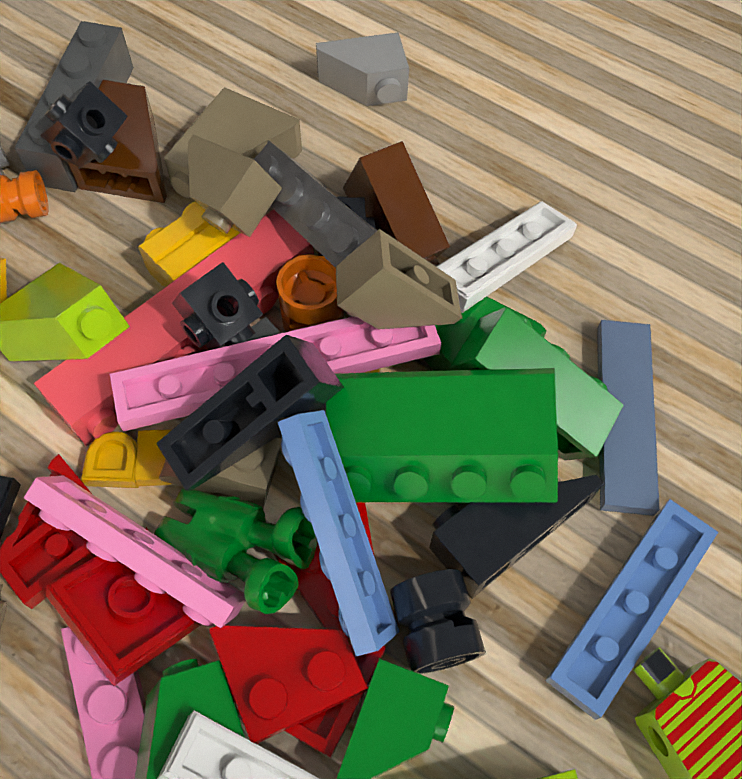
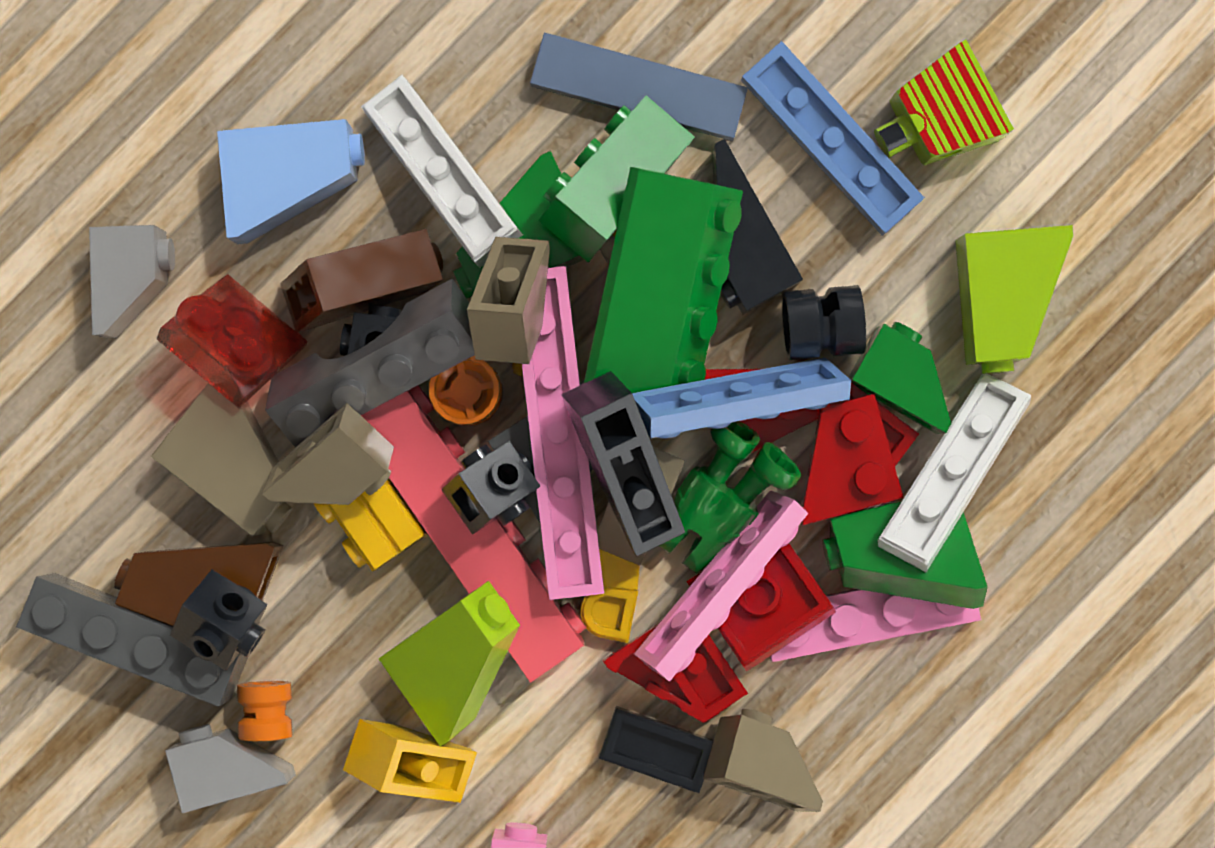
camera: 80 degrees left, 25 degrees up
(328, 129) = (231, 339): none -> clear red slope
(470, 153) = (283, 171): none -> light blue slope

